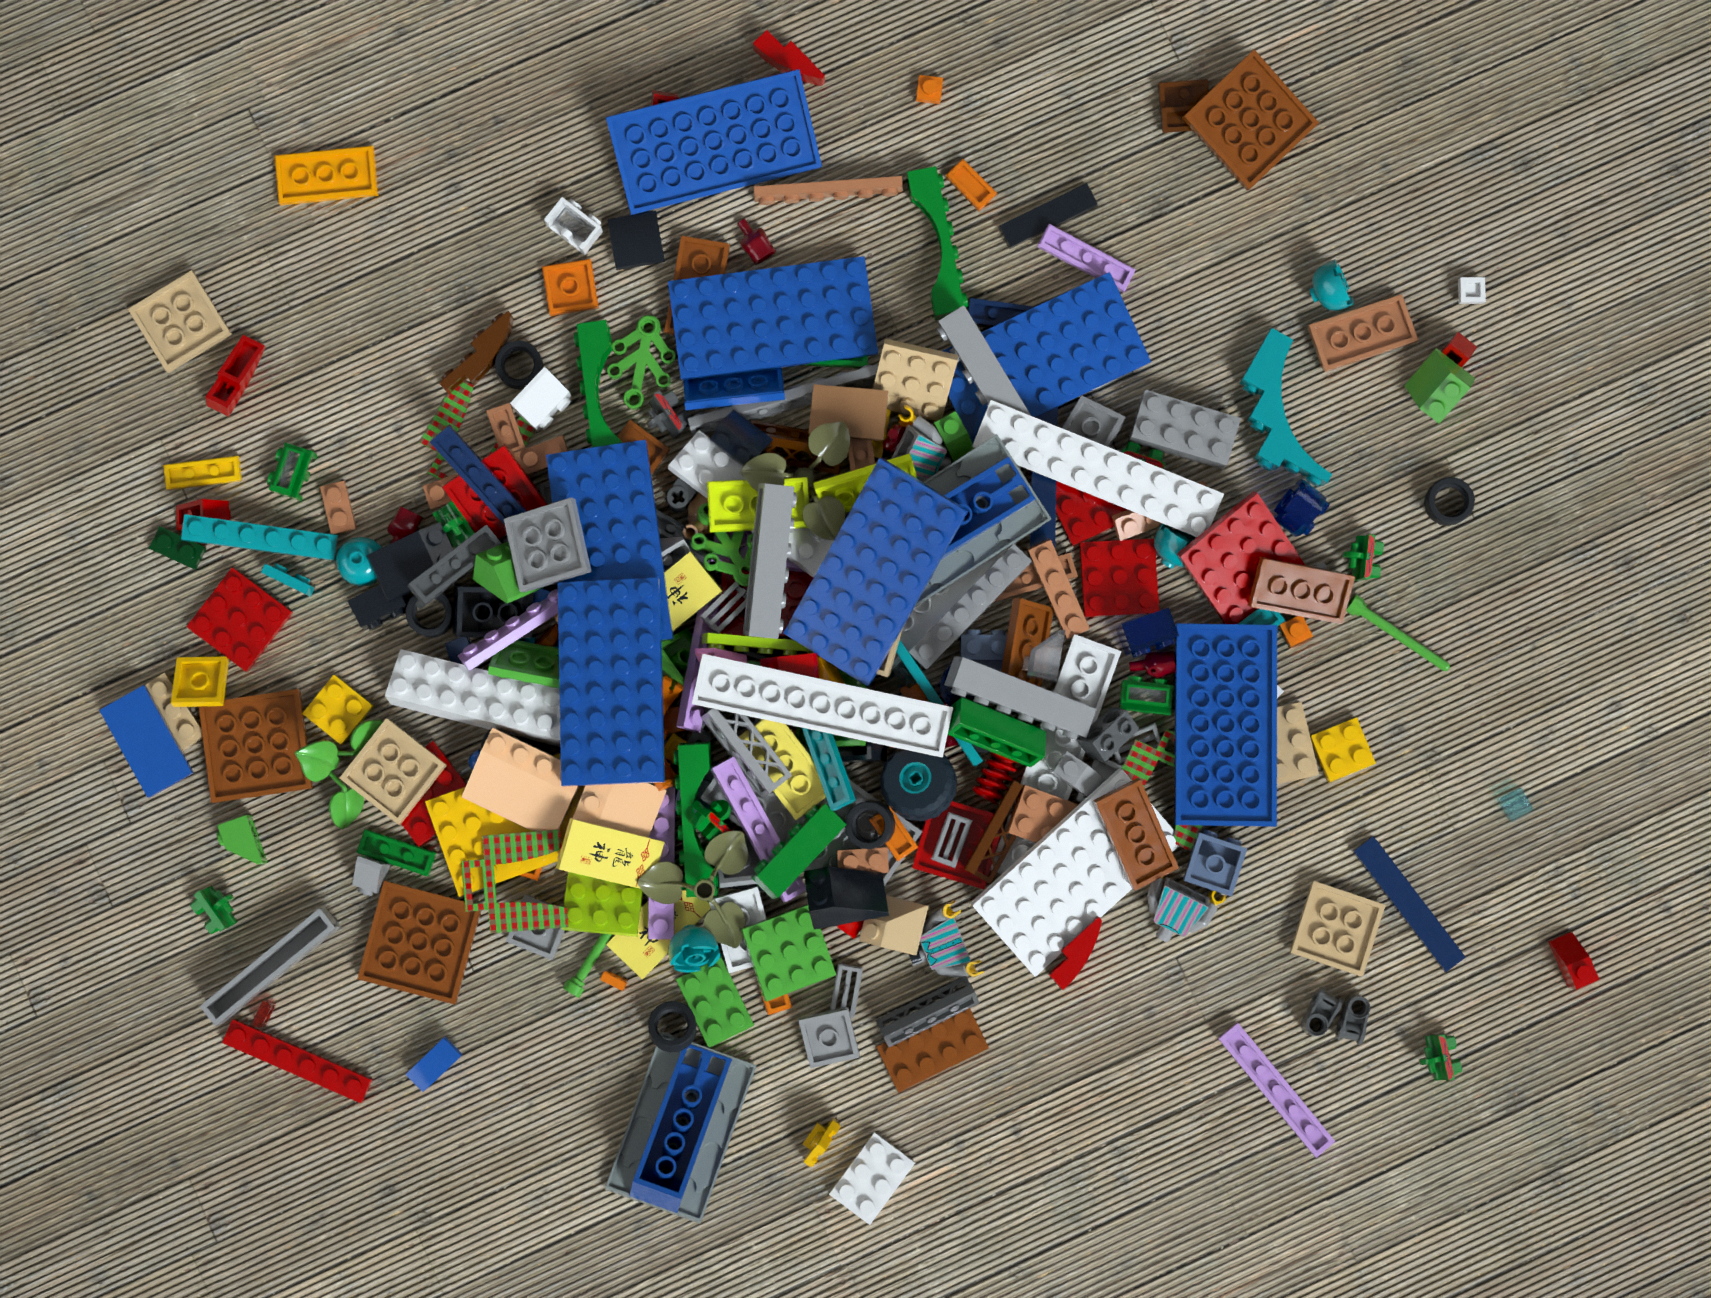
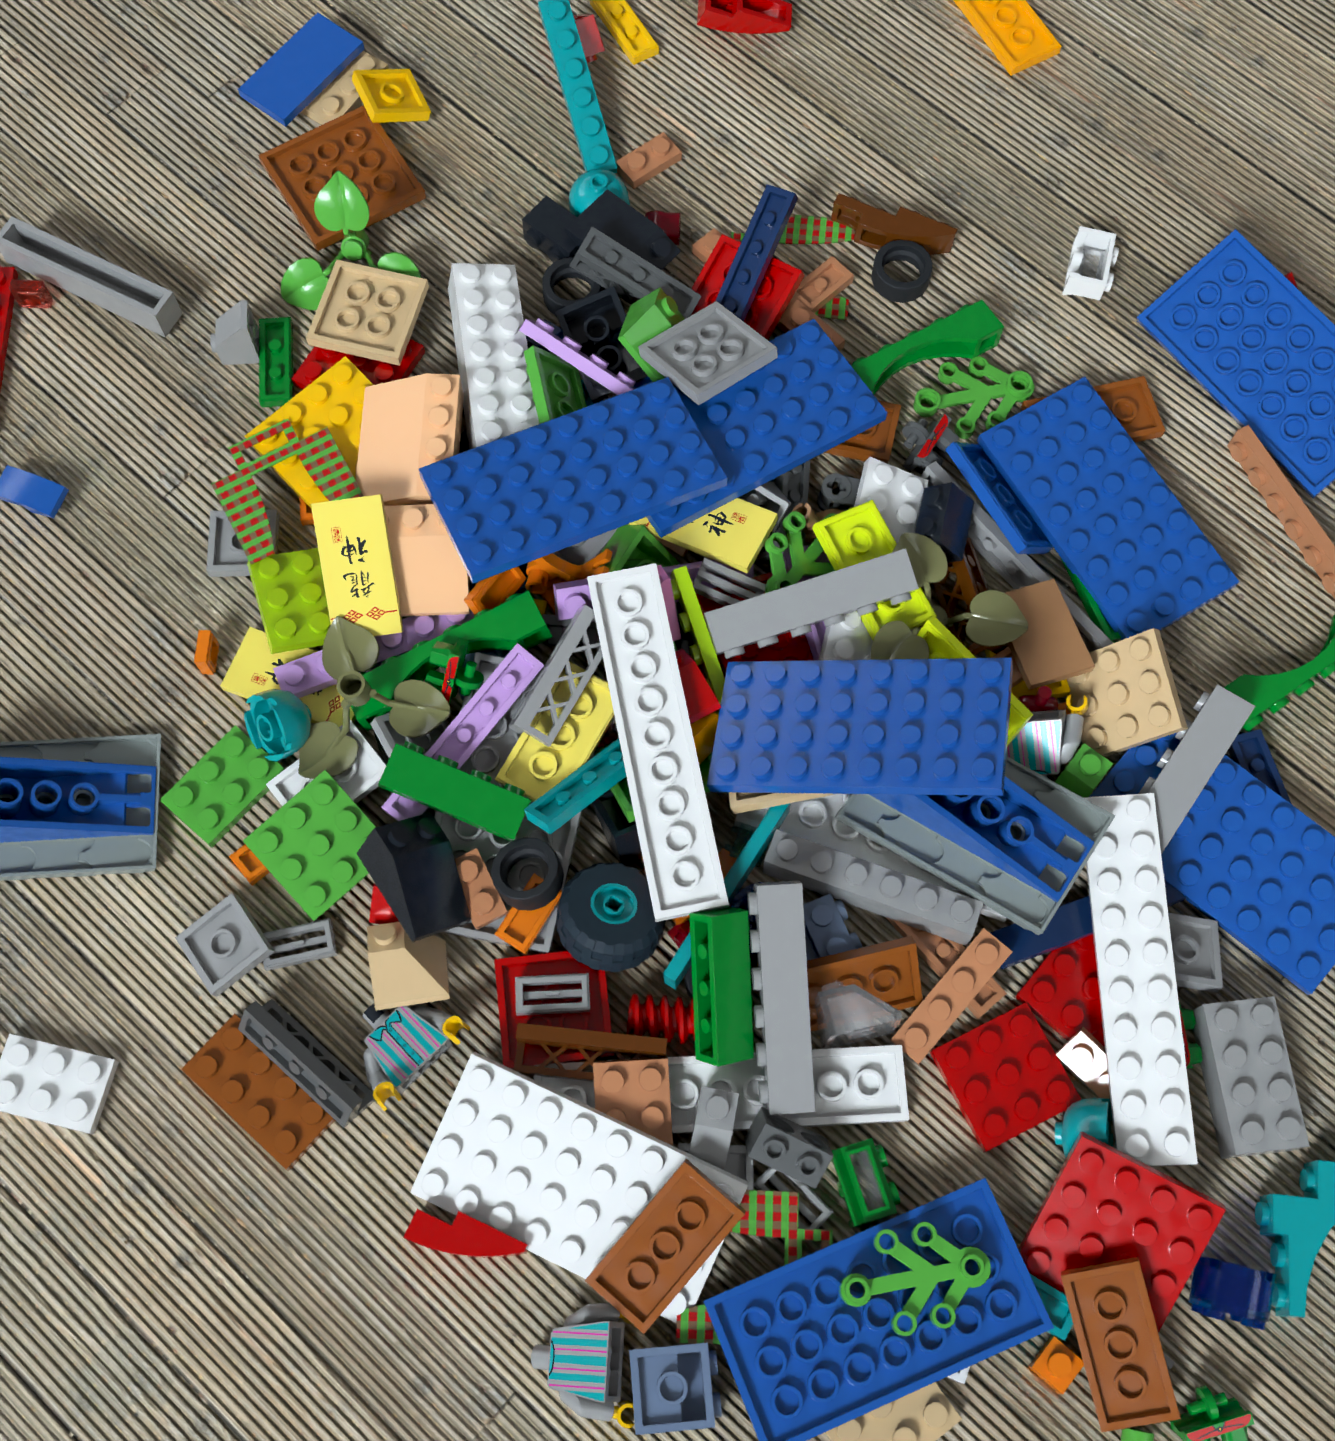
camera: 70 degrees right, 15 degrees down
(171, 546) = (530, 33): dark green plate -> none
(216, 907) = (137, 203): green hips -> none
(239, 619) = (478, 114): red plate -> none
(242, 839) = (229, 201): bright green slope -> none
(279, 573) = (546, 128): teal plate -> none
(290, 471) = (667, 95): green window -> none
(338, 709) = (423, 239): yellow plate -> none
(419, 943) = (174, 422): dark orange plate -> none
(453, 524) = (687, 265): green hips -> none
(541, 400) = (875, 299): white slope -> none
(570, 287) = (1018, 291): orange tile -> none
(576, 983) = (185, 611): bright green piece -> none
(636, 240) = (1110, 334): black slope -> none
(672, 1045) = (169, 717): black tyre -> none
(755, 243) = (1181, 462): dark red piece -> none
(819, 1140) = (79, 989): yellow plate -> none
(1146, 632) = (952, 1143): clear blue brick -> none
(1156, 664) = (914, 1176): dark red piece -> none
(1217, 690) = (922, 1277): none -> bright green plant

